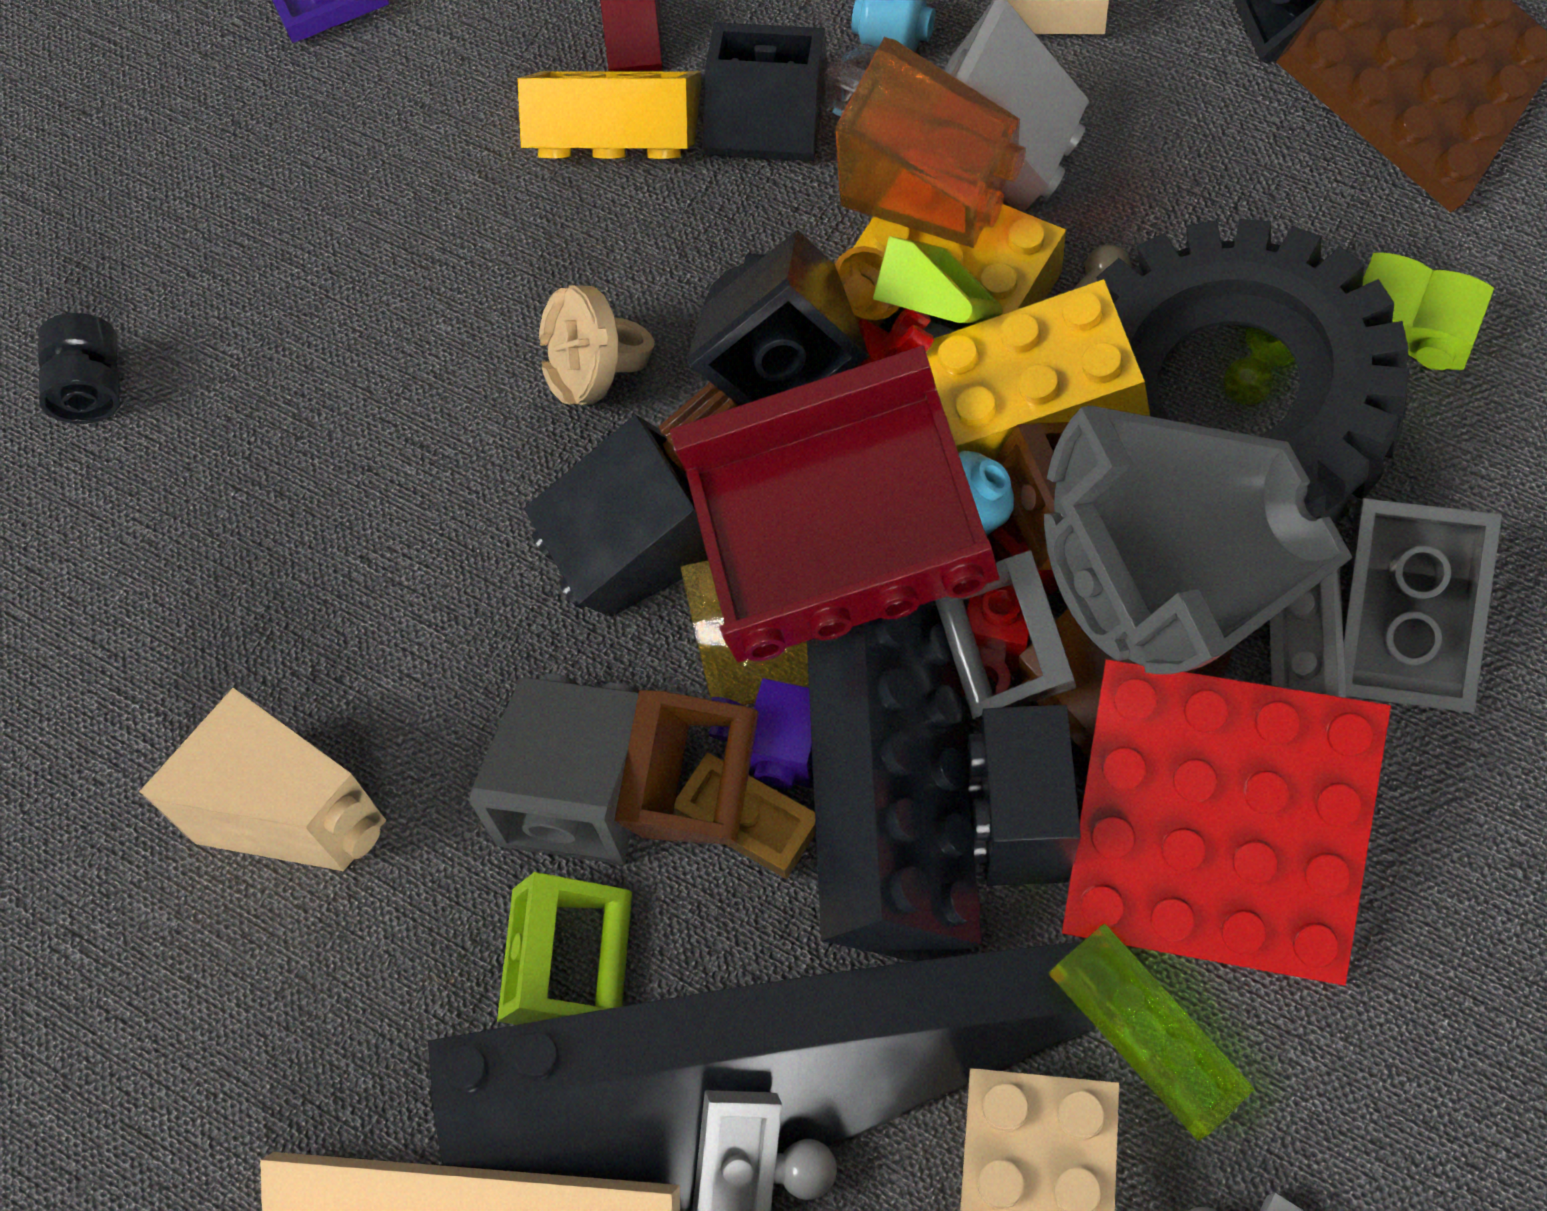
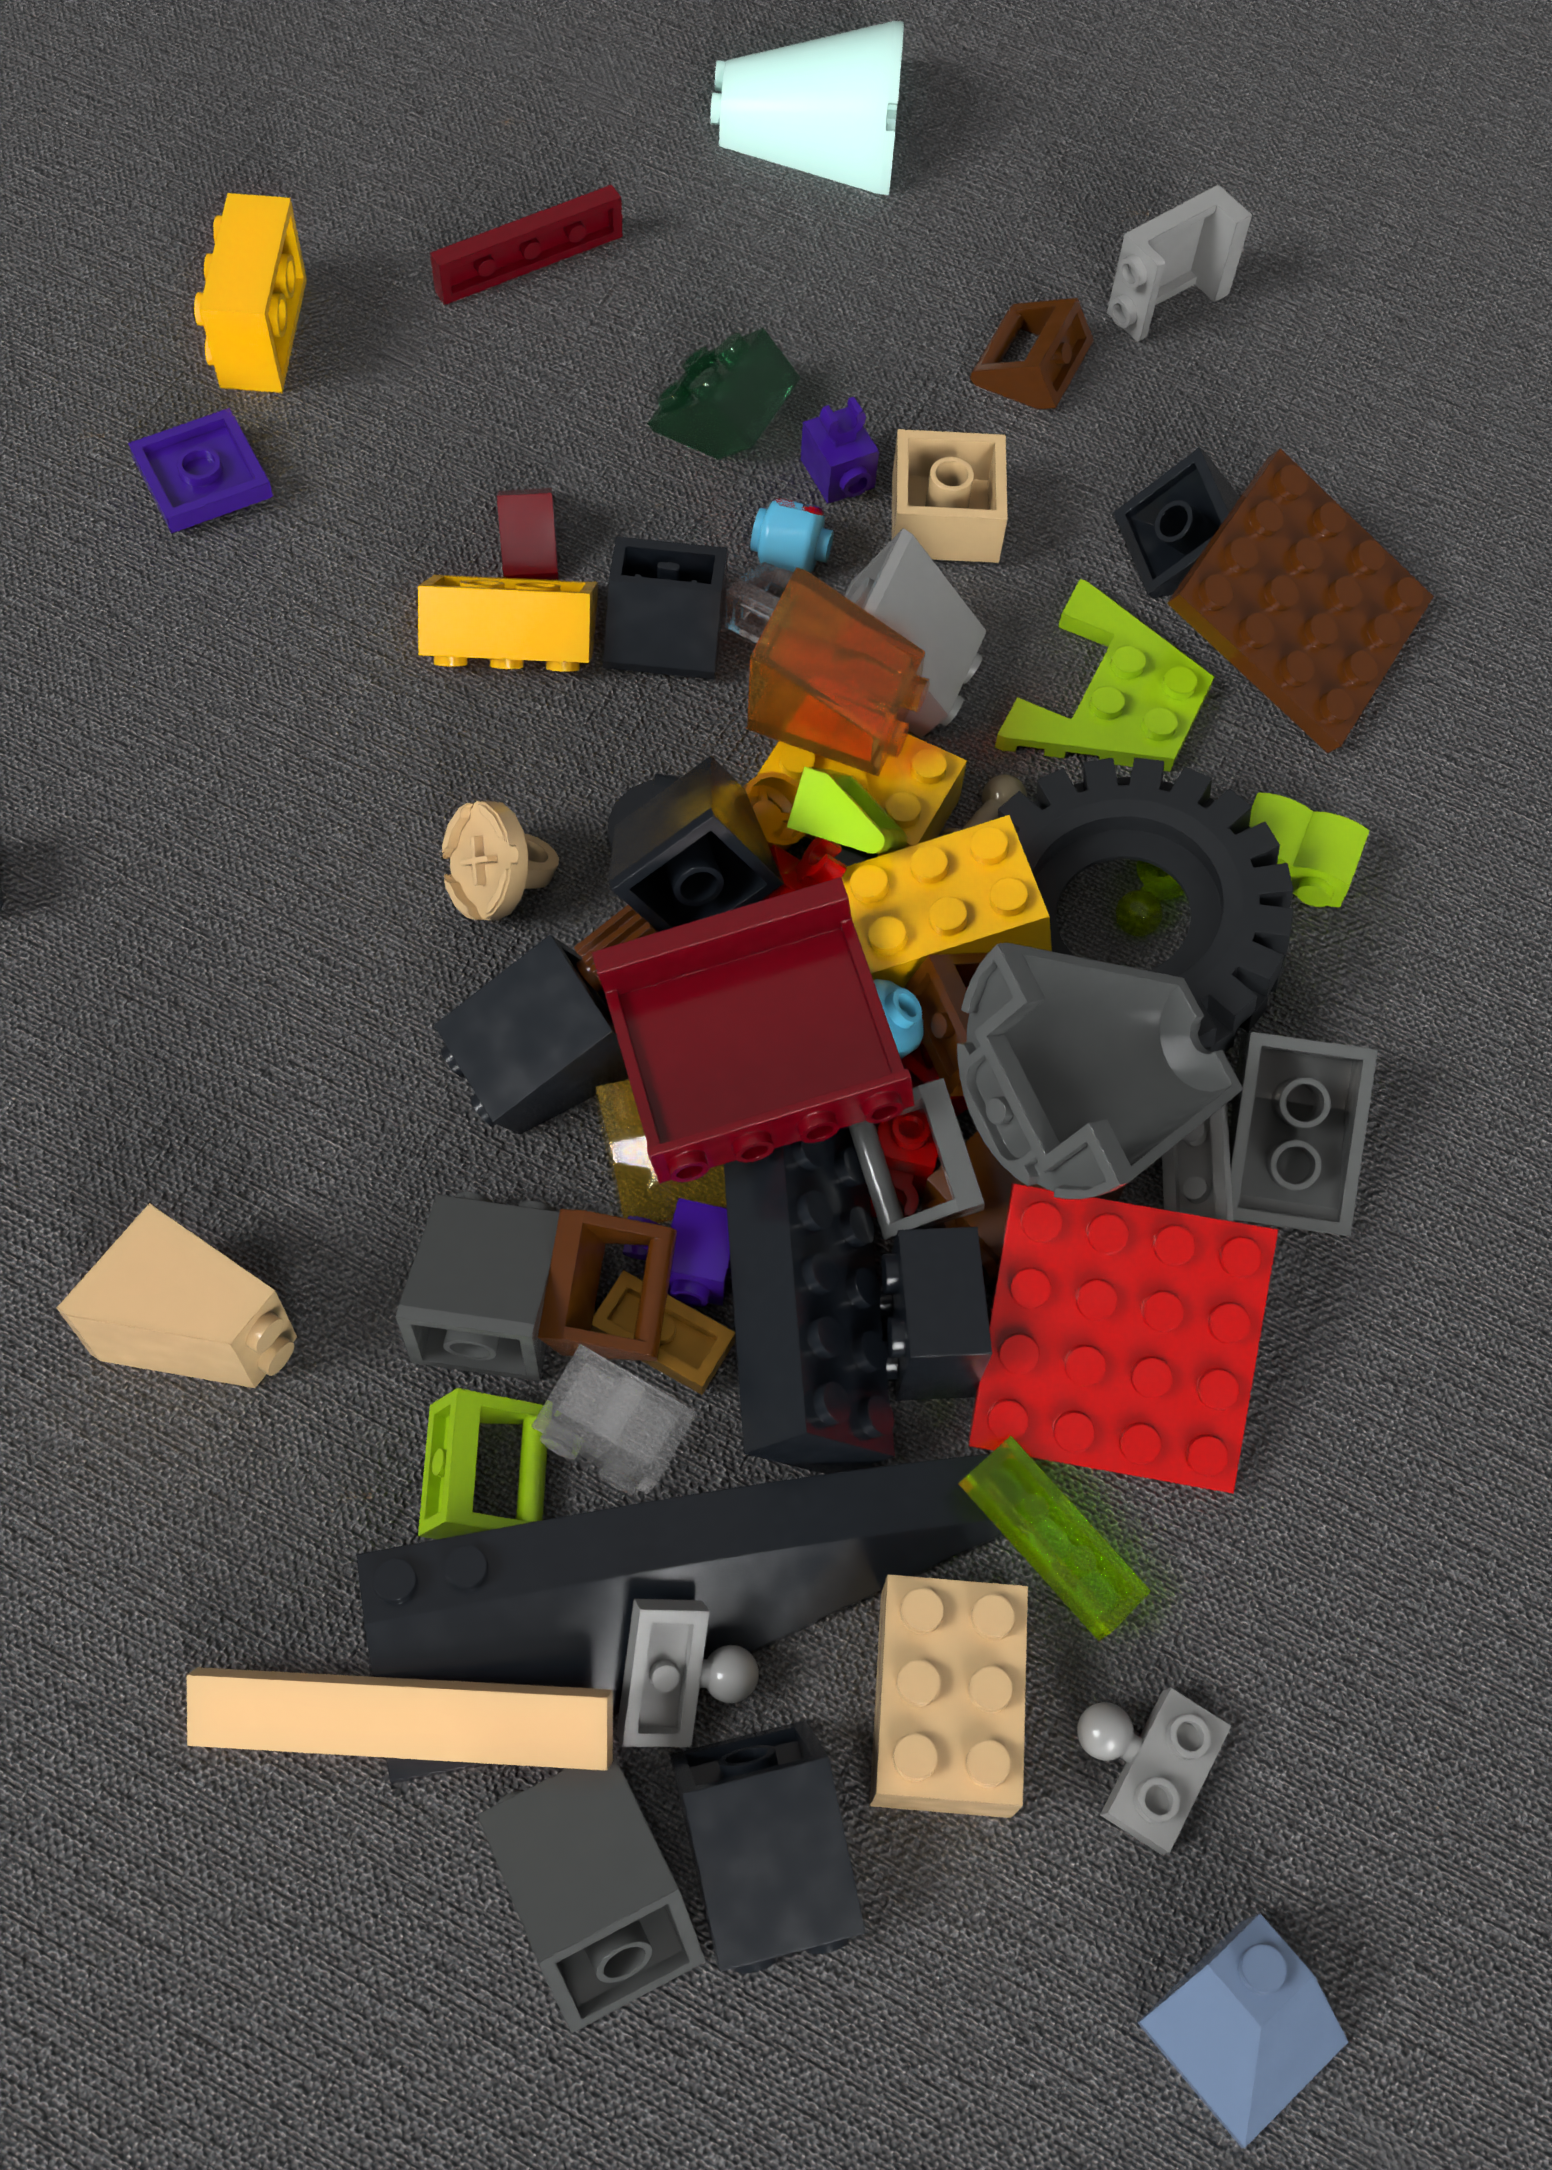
camera: 15 degrees left, 0 degrees up
(690, 906) = (613, 1422): none -> clear brick
(1246, 168) = (1135, 703): none -> lime wing

